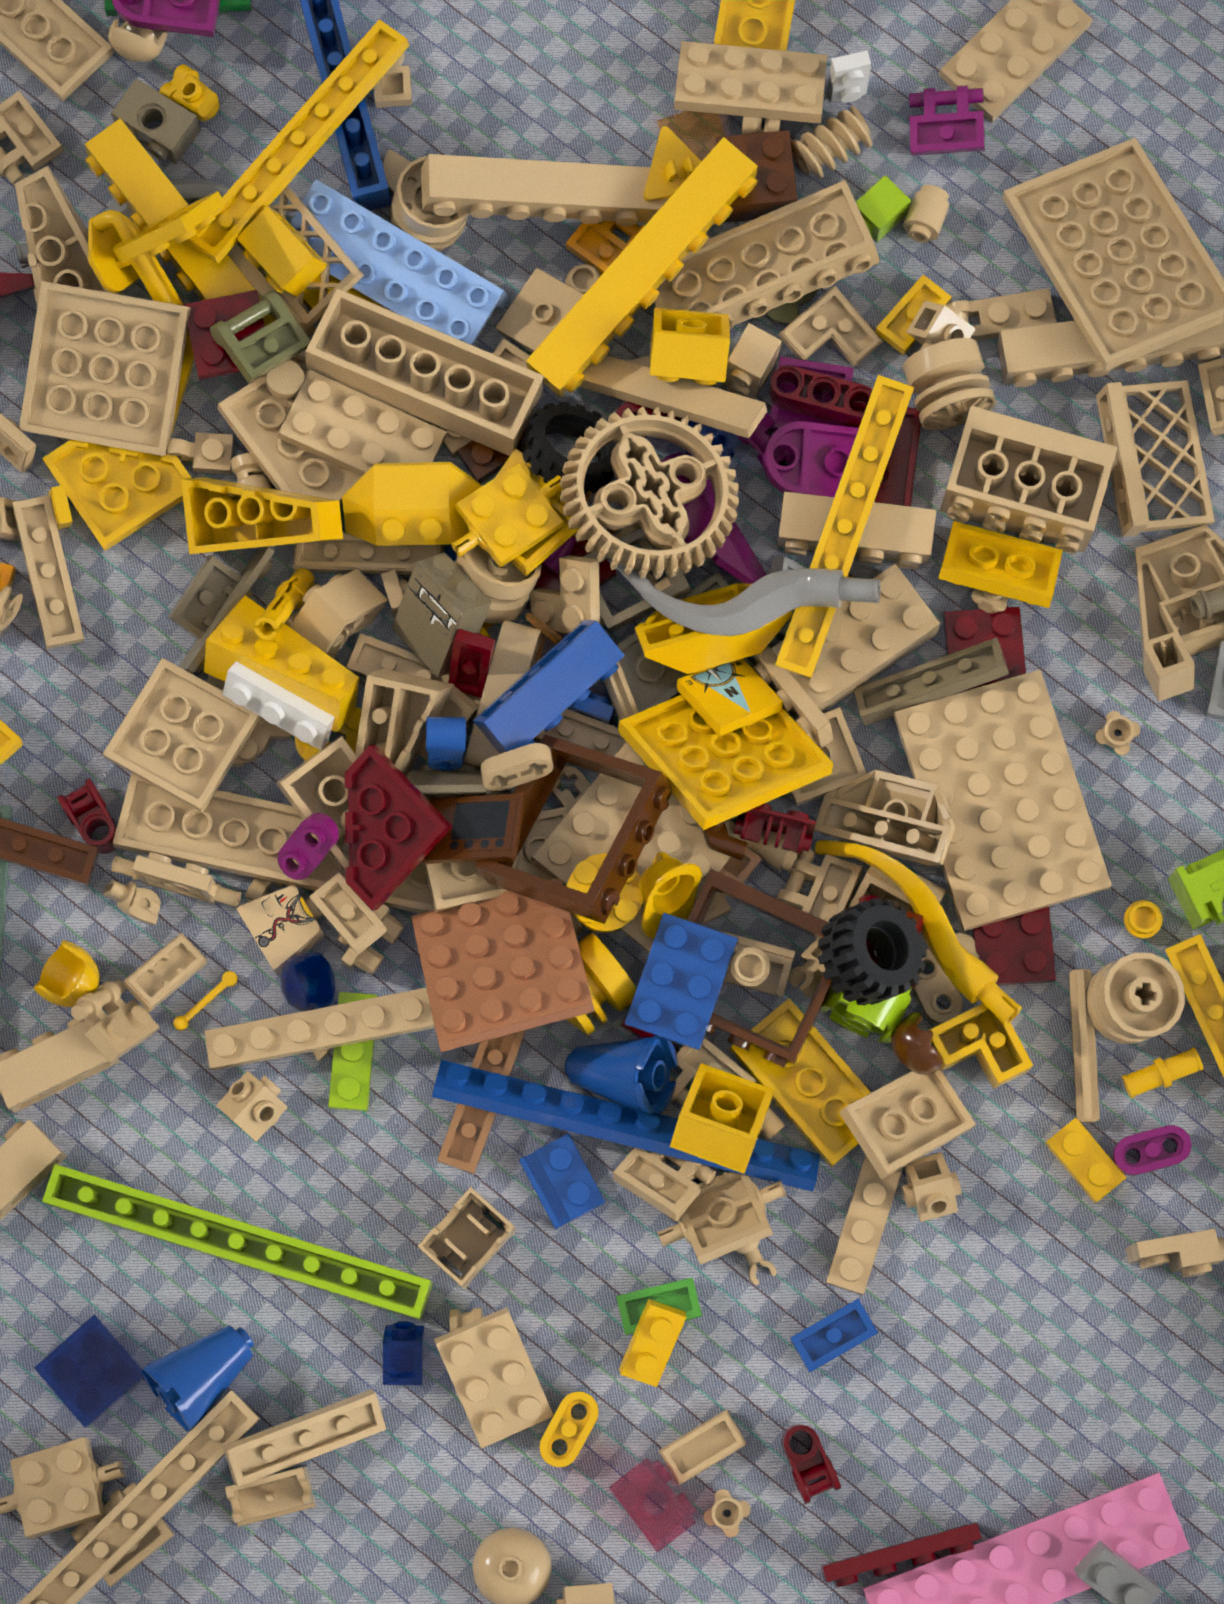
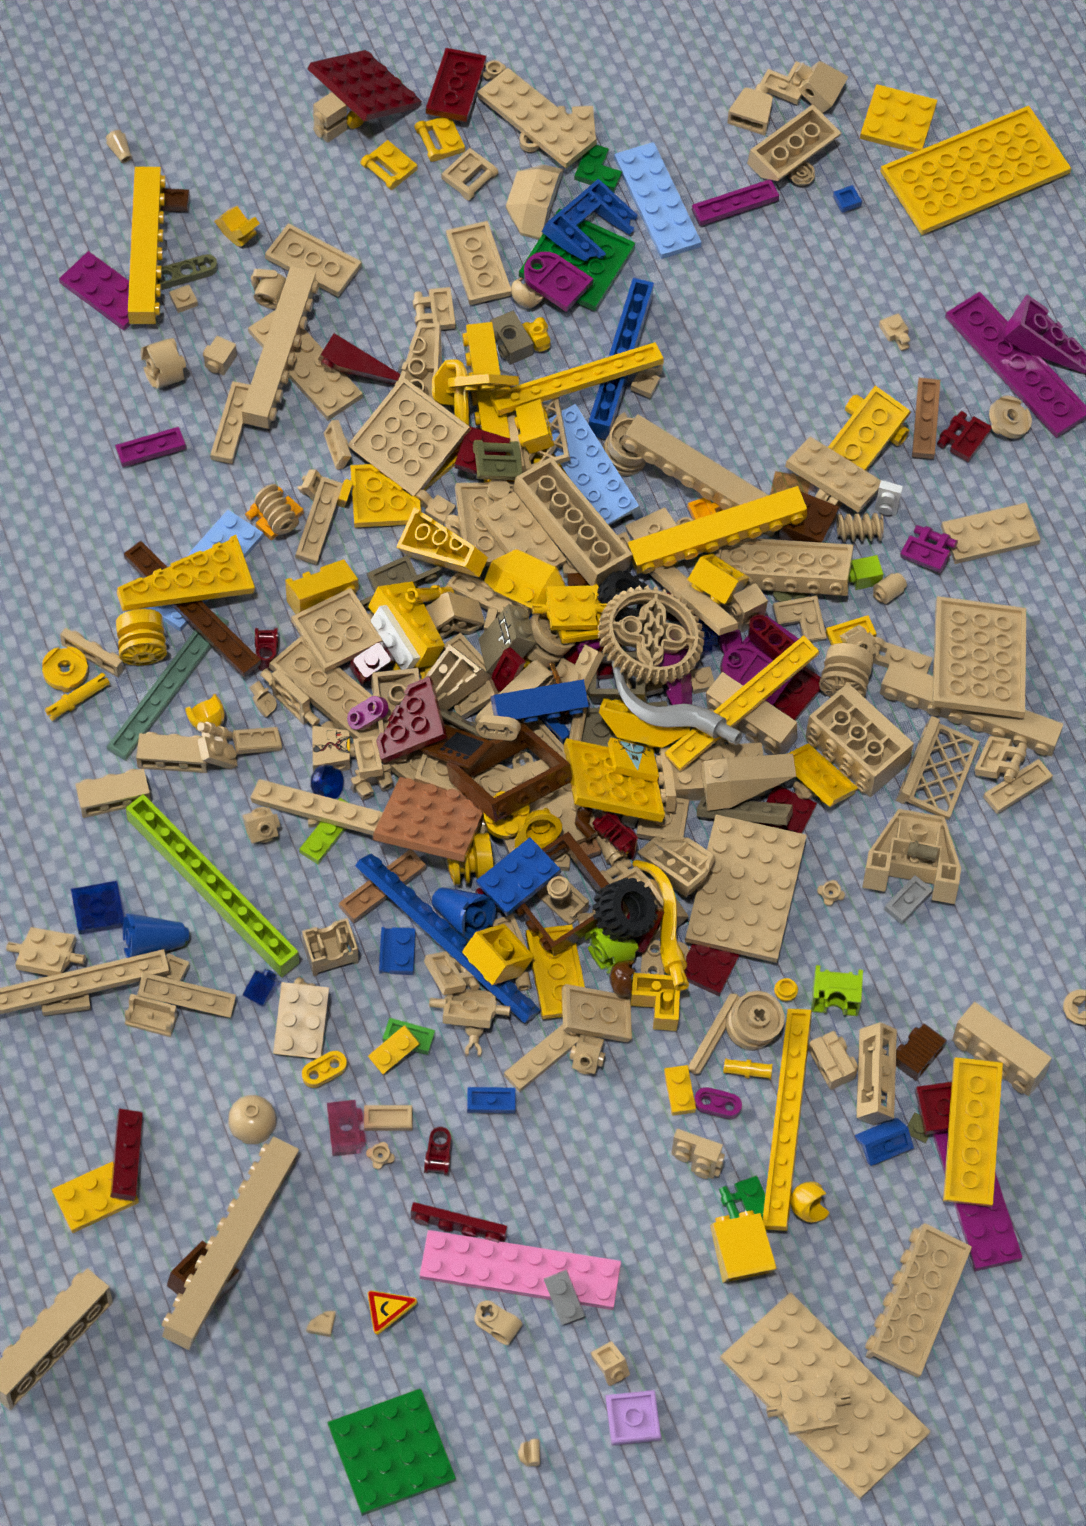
camera: 25 degrees right, 15 degrees down
(118, 678) = (320, 586): none -> yellow wedge
(229, 979) = (287, 764): yellow hinge -> none
(262, 1399) = (177, 967): none -> tan plate
(265, 758) = (372, 660): none -> torso
(445, 742) = (468, 698): blue piece -> none
(669, 166) = (765, 486): yellow piece -> none
(751, 507) = (701, 679): none -> tan plate
(902, 643) = (742, 778): none -> tan wedge

